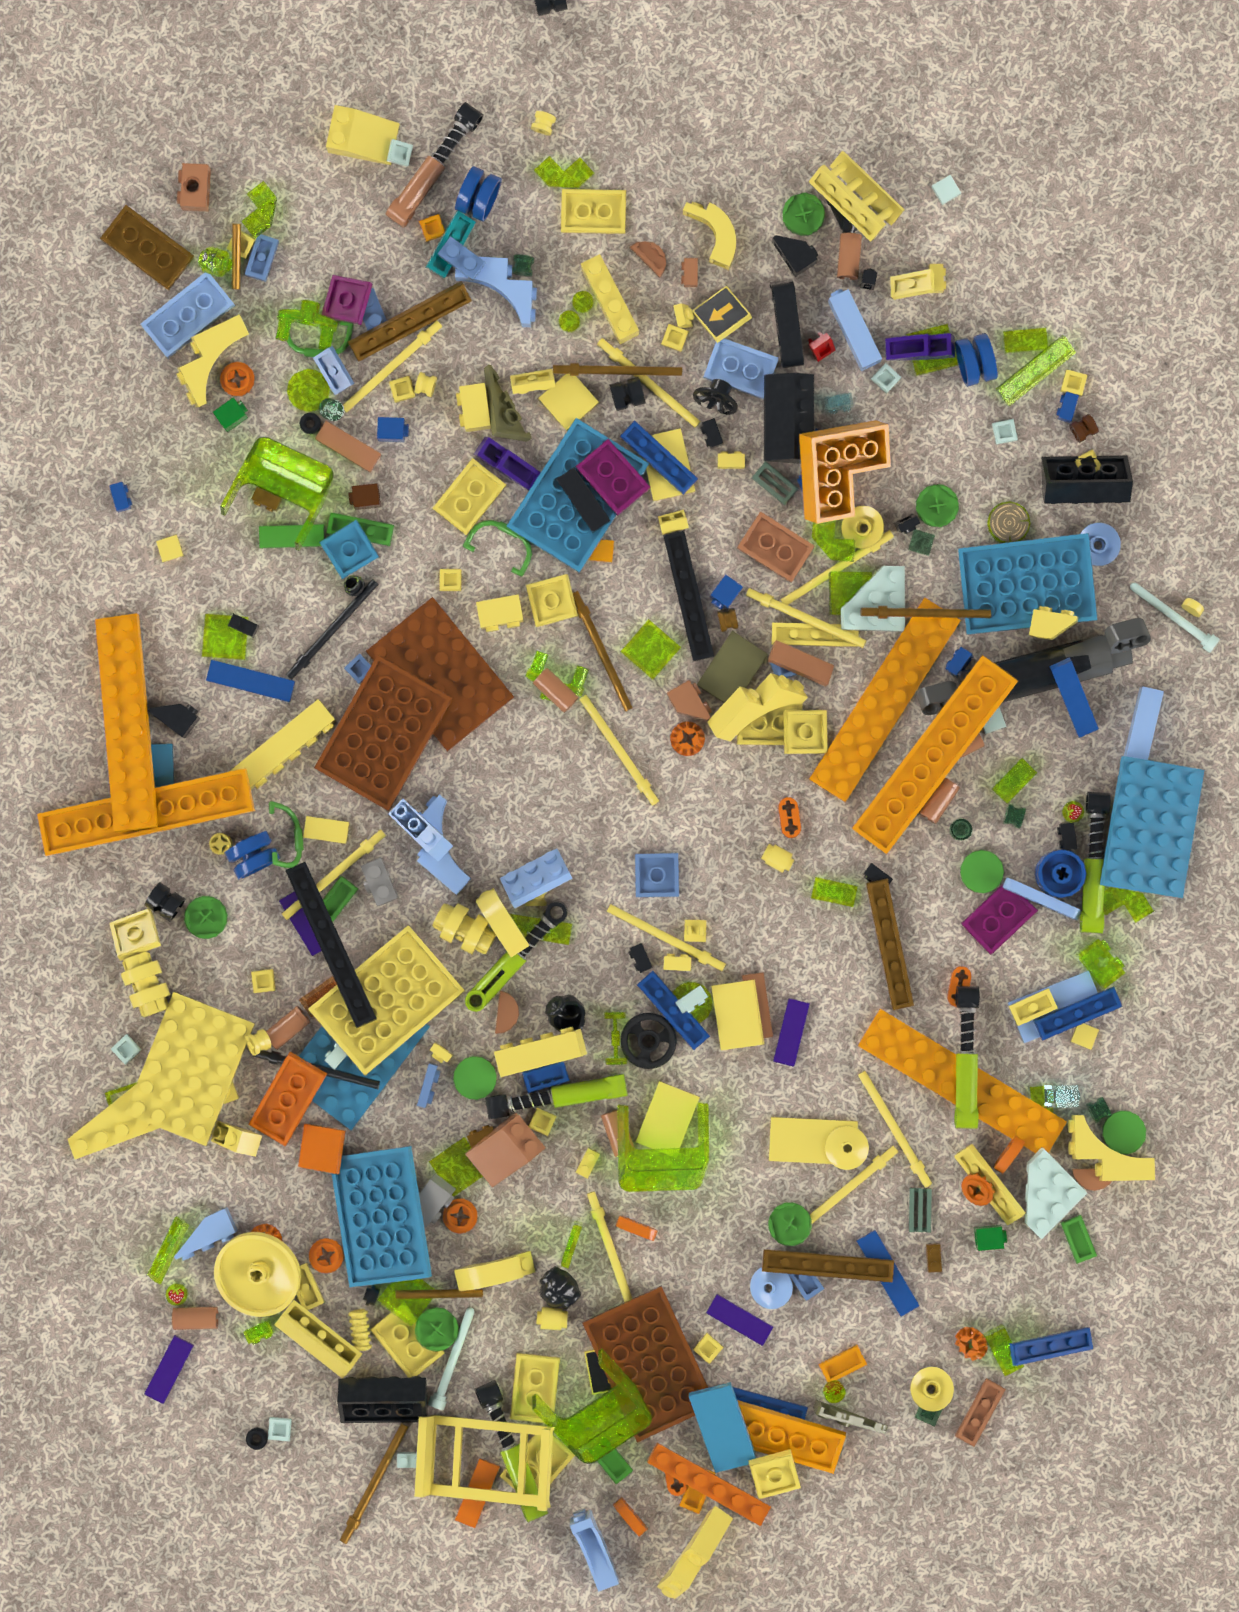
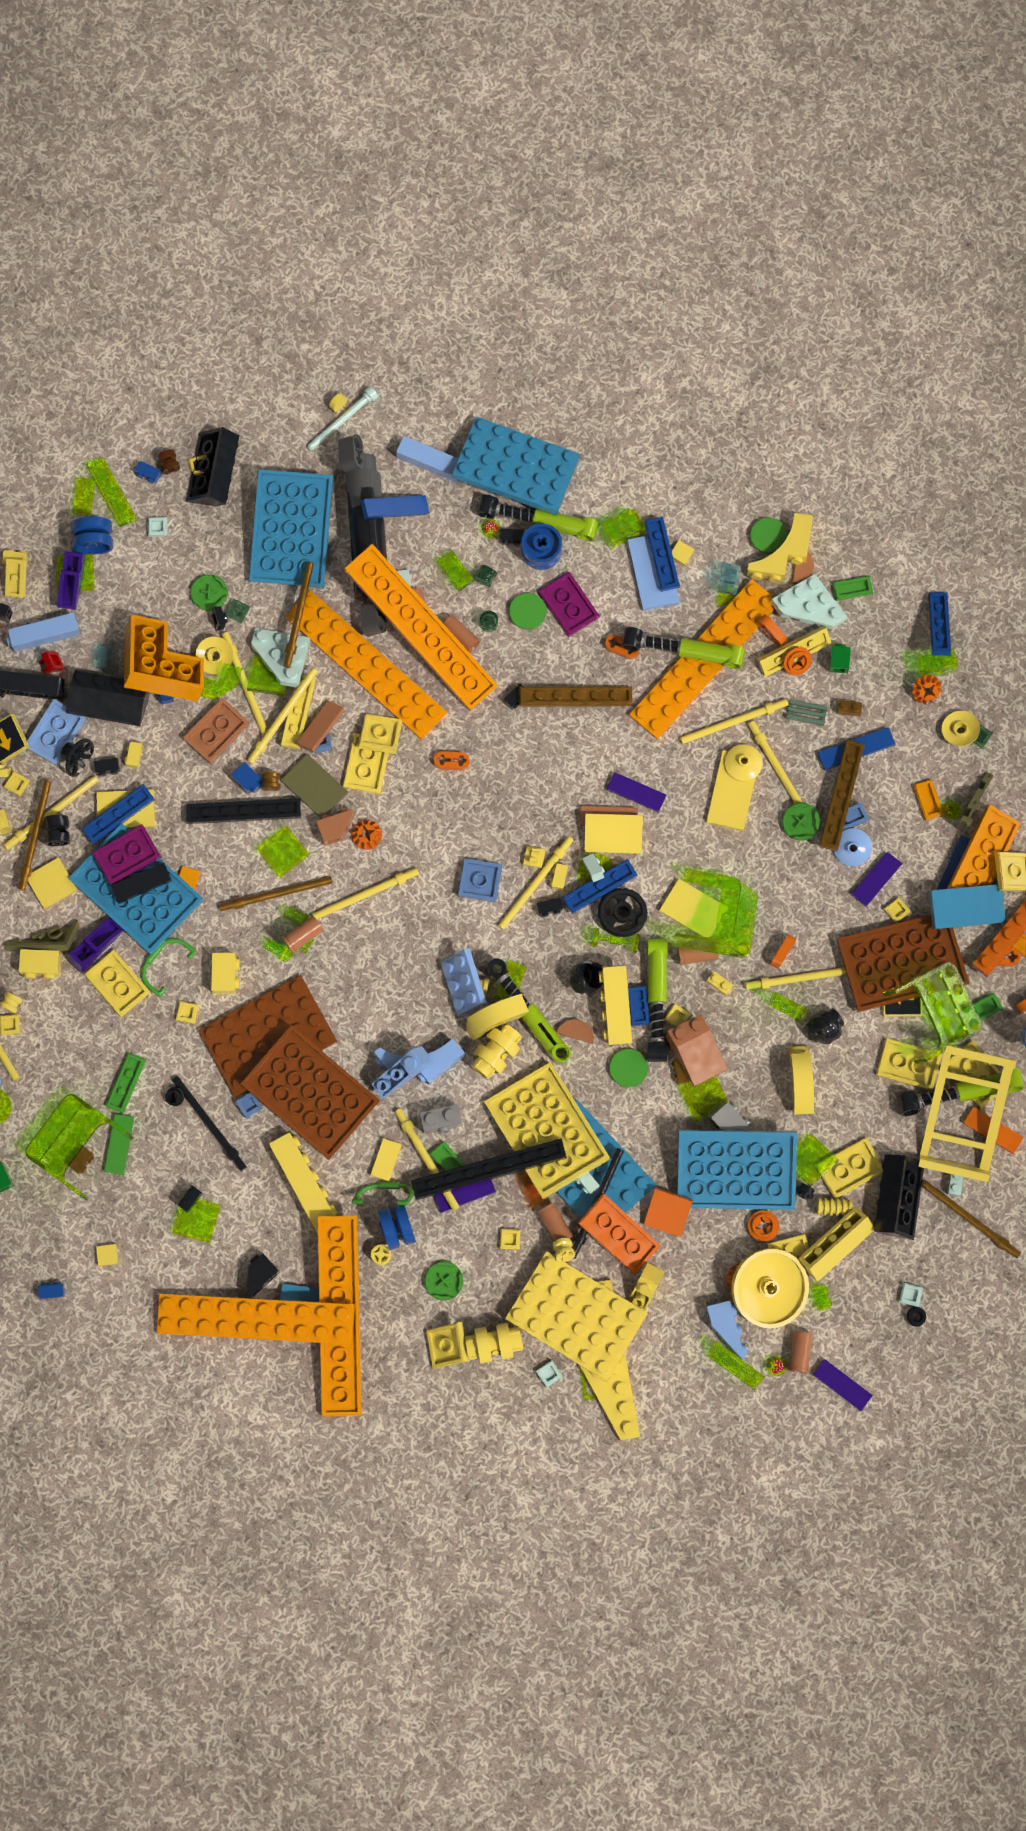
camera: 85 degrees left, 10 degrees down
(164, 901) = (423, 1313): black wheel -> none
(250, 681) = (240, 1203): blue tile -> none
(310, 430) = (16, 1108): black plate -> none
(336, 409) = (11, 1084): clear green wheel -> none
(348, 446) = (50, 1080): nougat tile -> none
(349, 549) = (141, 1094): dark azure tile -> none
(365, 496) = (98, 1072): reddish brown brick -> none
(392, 429) = (43, 1038): blue brick -> none
(426, 1095) = (634, 1111): medium blue plate -> none
(436, 1329) = (844, 1139): bright green tile -> none
(438, 1399) = (905, 1148): light aqua piece -> none
(440, 1053) = (602, 1092): light yellow plate -> none
(440, 1293) = (813, 1132): pearl gold bar -> none
(451, 1221) = (756, 1098): orange gear -> none
(532, 381) = (28, 908): light yellow plate -> none
(551, 600) = (223, 927): light yellow tile -> none
(552, 1318) = (850, 1037): light yellow brick -> none
(673, 522) = (176, 812): light yellow piece -> none
(749, 704) = (347, 771): light yellow arch -> none
(777, 858) = (484, 776): light yellow brick -> none
(788, 495) = (149, 732): sand green tile -> none
(834, 892) = (522, 735): clear neon green plate -> none
(886, 378) = (90, 615): light aqua tile -> none
(959, 662) = (346, 597): blue piece -> none
(980, 1412) = (986, 694): nougat tile -> none
(1008, 522) = (235, 537): dark tan tile -> none
(1033, 1007) = (650, 588): light yellow plate -> none
(1041, 898) = (560, 565): light blue beam -> none
(1049, 624) = (329, 514): light yellow slope -> none
(1073, 382) = (128, 463): light yellow plate -> none
(1098, 1109) = (746, 551): clear green wheel -> none
(1108, 538) = (267, 459): light blue dish -> none
(1133, 901) = (576, 493): clear neon green tile -> none

